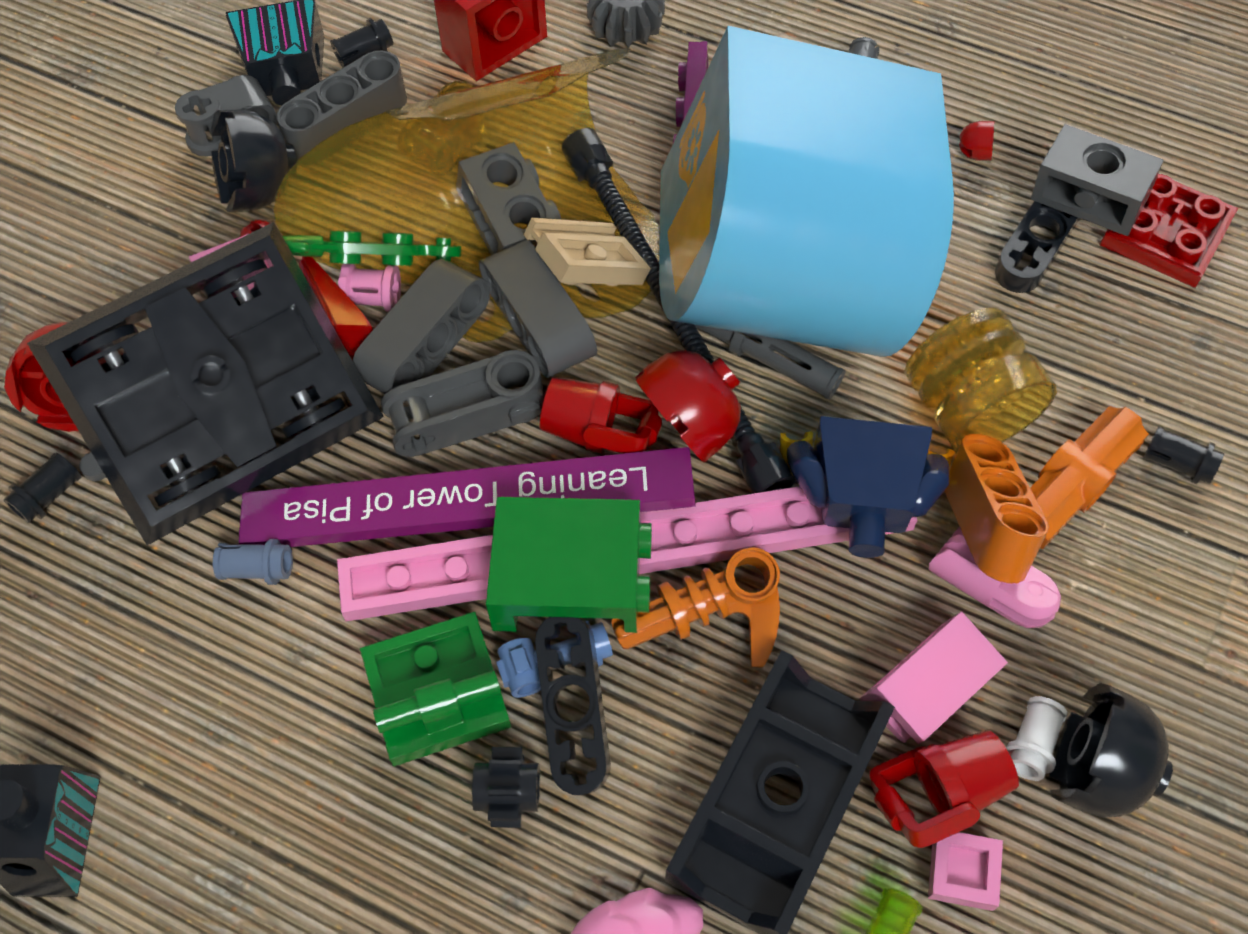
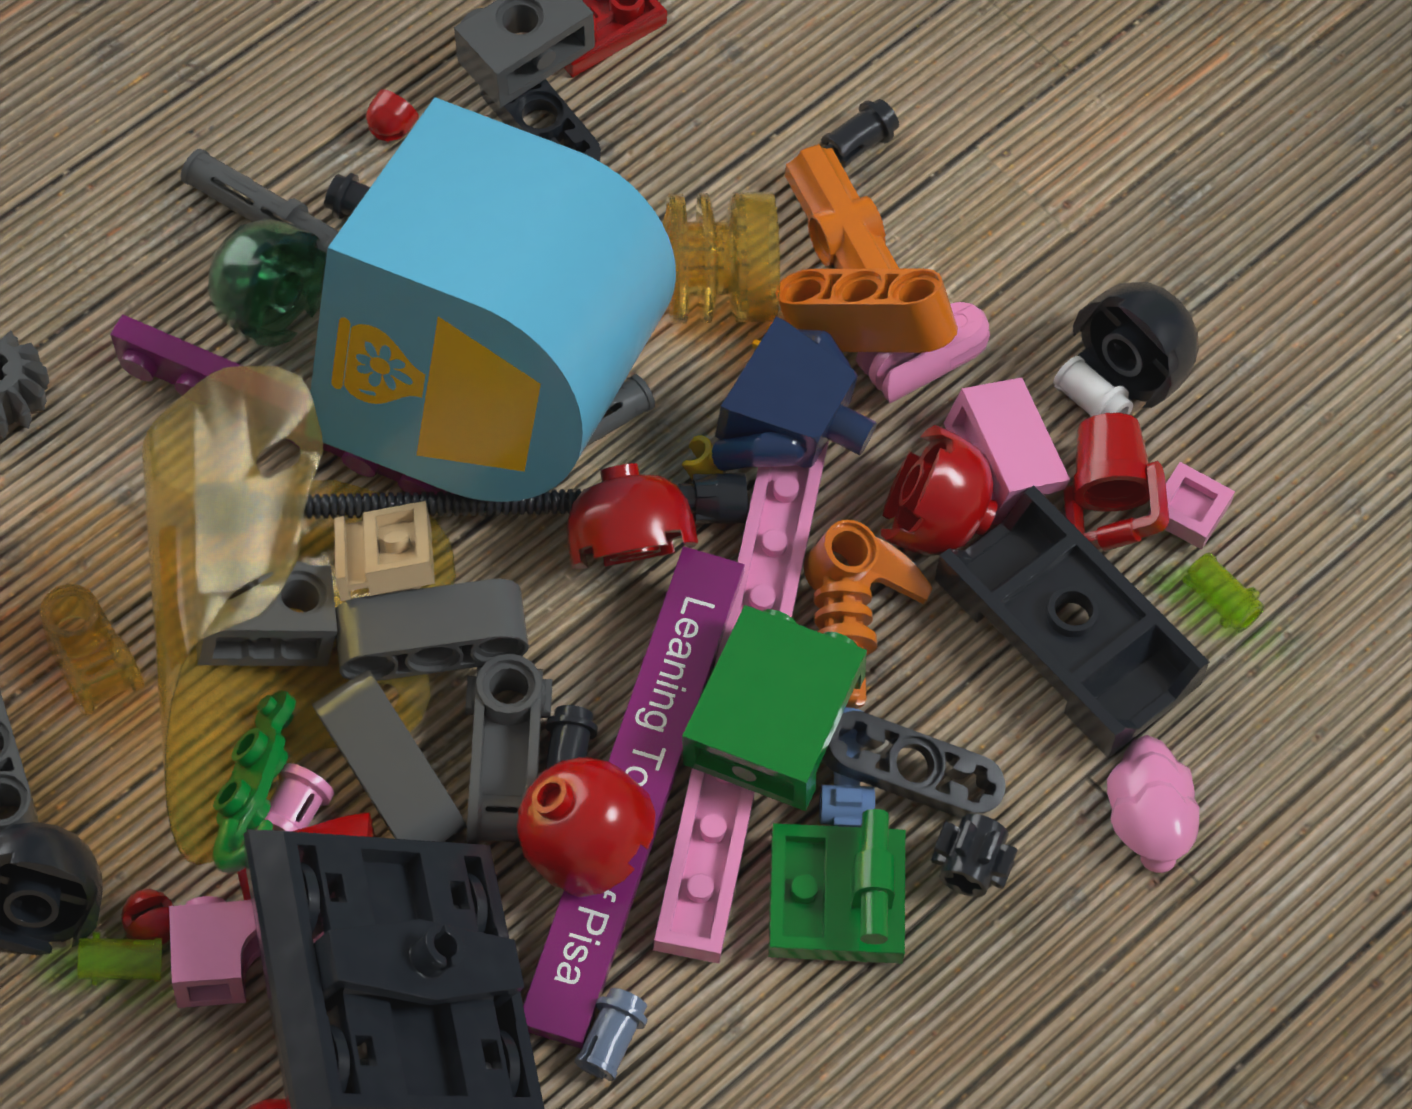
camera: 75 degrees left, 0 degrees up
(214, 223) = (118, 959): none -> clear neon green pin
(402, 460) = (584, 825): none -> red cylinder
(491, 444) = (570, 733): none -> black pin
(586, 416) = (588, 629): red piece -> none
(849, 638) = (940, 496): none -> red cylinder

